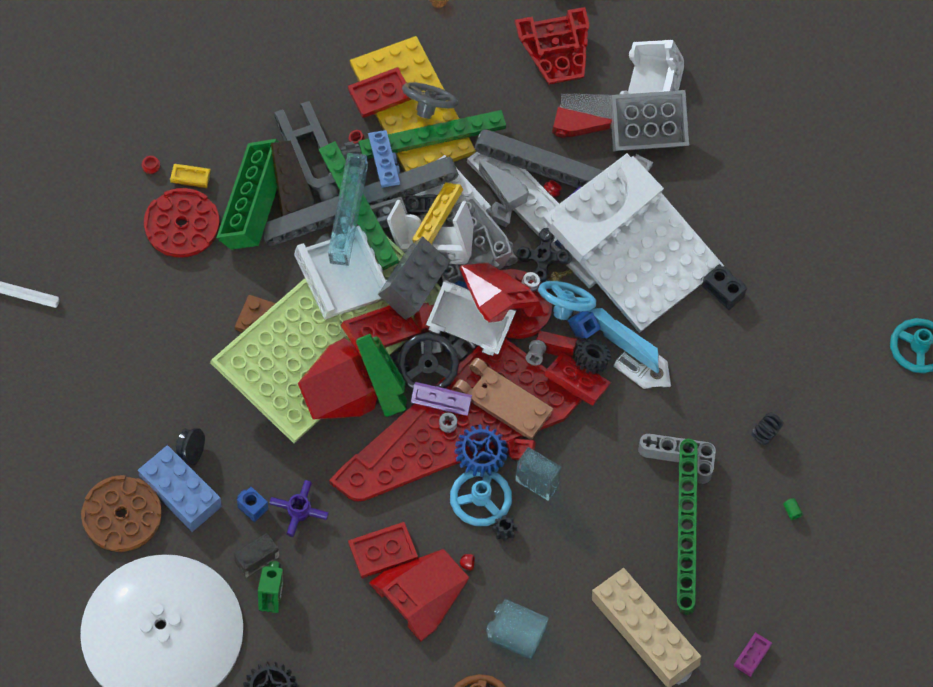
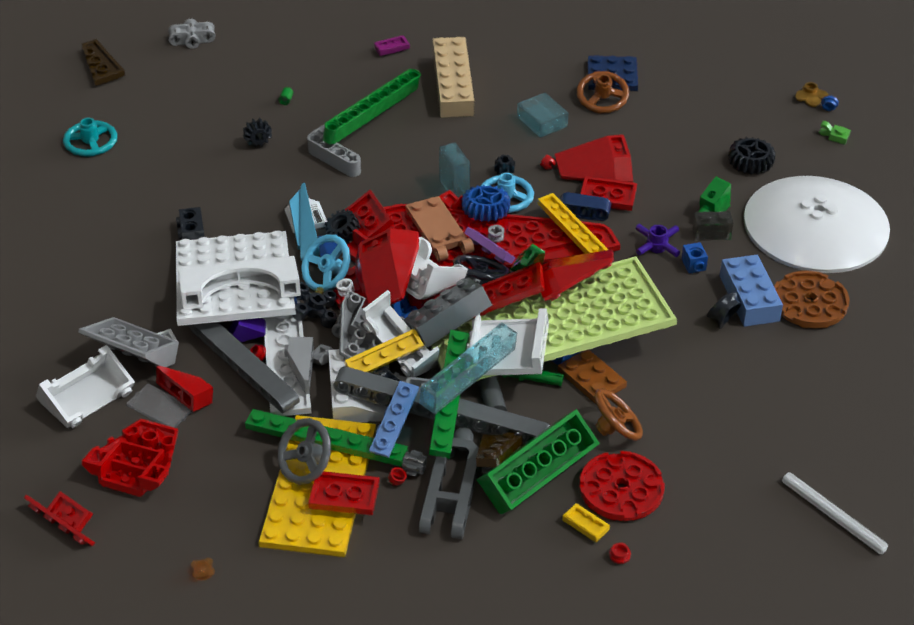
camera: 145 degrees left, 20 degrees down
(218, 271) = (614, 418): none -> dark orange piece
(379, 465) = (570, 224): none -> yellow plate
(402, 511) = (587, 206): none -> dark blue beam

